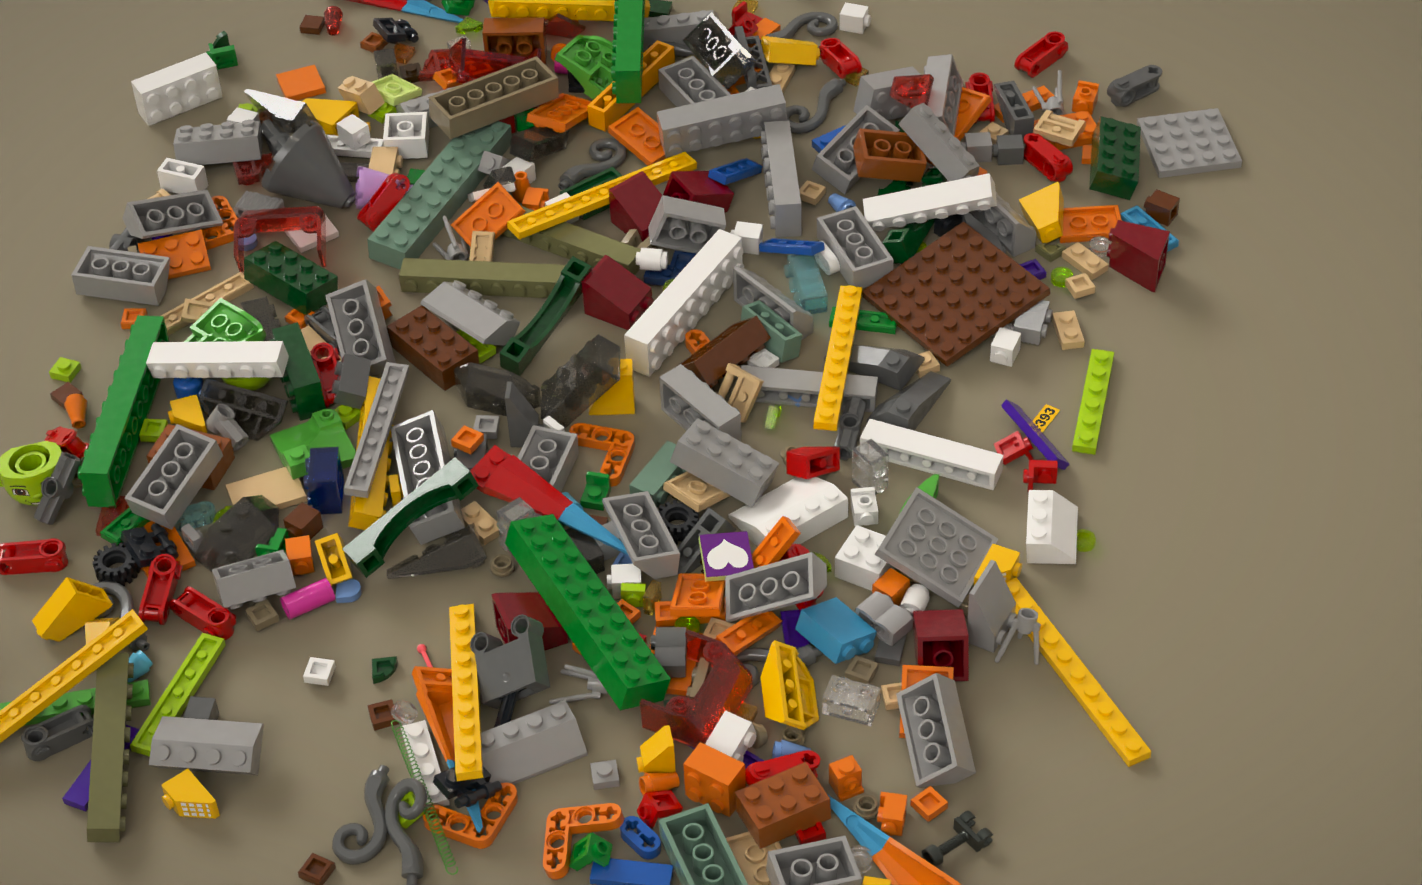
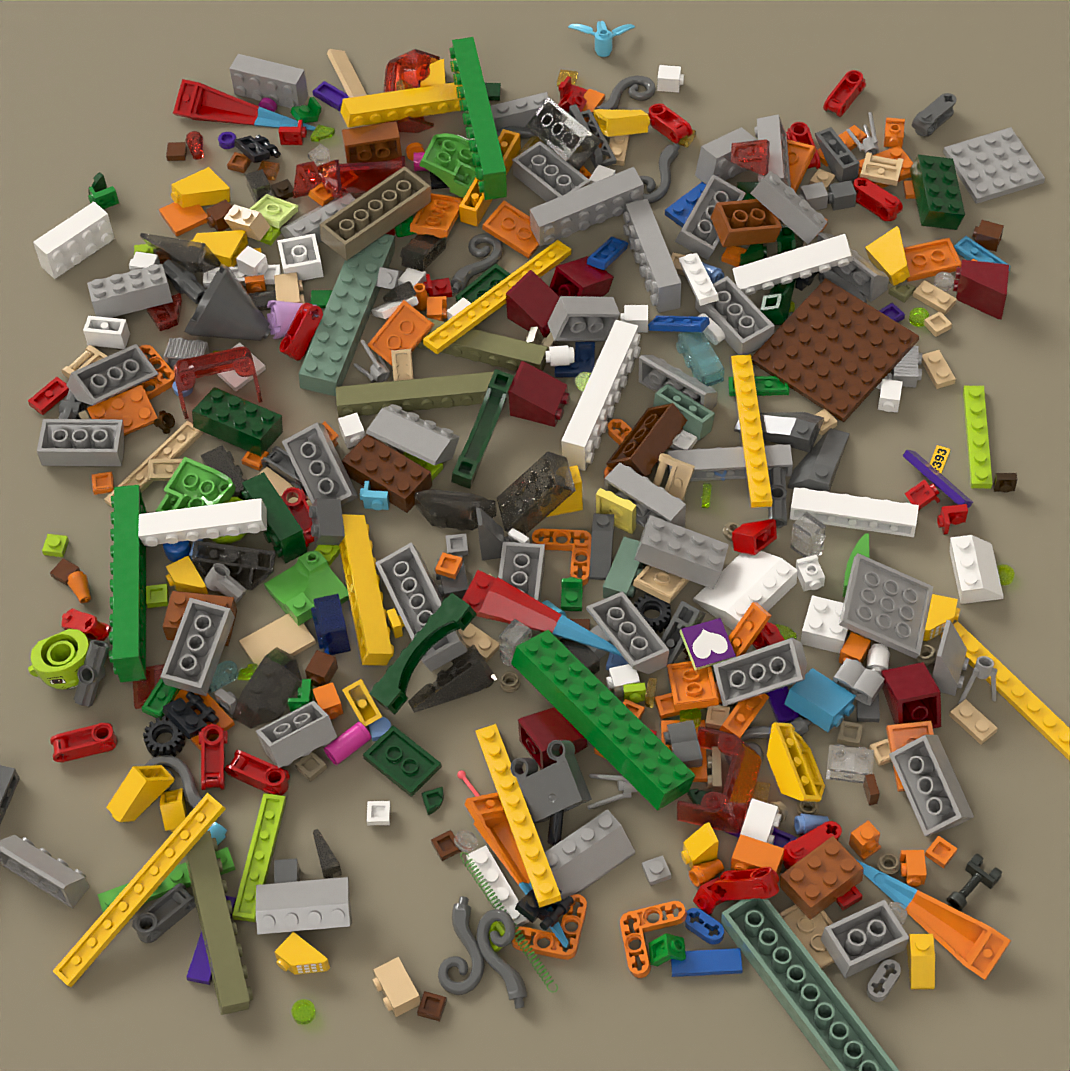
camera: 10 degrees left, 10 degrees up
(104, 230) = (49, 396): none -> red plate
(176, 853) = (303, 1011): none -> clear neon green tile
(221, 269) = (169, 421): none -> dark brown plate
(248, 706) = (328, 862): none -> clear smoke slope
(283, 843) = (396, 986): none -> tan brick
(323, 59) = (200, 188): none -> yellow slope
(331, 85) = (216, 215): none -> reddish brown brick
(352, 153) = (255, 284): none -> orange plate
(361, 624) = (402, 760): none -> dark green plate
(366, 20) = (227, 140): none -> dark purple tile
(376, 430) = (365, 570): light grey plate -> none
(408, 299) = (351, 429): none -> white brick
(417, 370) = (374, 499): none -> medium azure bracket
(437, 23) = (293, 135): none -> red bracket
(547, 181) = (438, 287): none -> red bracket
(643, 445) = (601, 546): none -> dark grey slope
(665, 413) = (623, 509): none -> light yellow plate
(693, 794) = (746, 884): none -> red piece
(823, 204) = (698, 279): none -> white plate
(868, 729) = (871, 789): none -> reddish brown tile
(871, 189) = (732, 255): none -> orange plate
(1005, 680) = (973, 721): none -> tan plate
(1110, 448) = (1005, 482): none -> dark brown plate

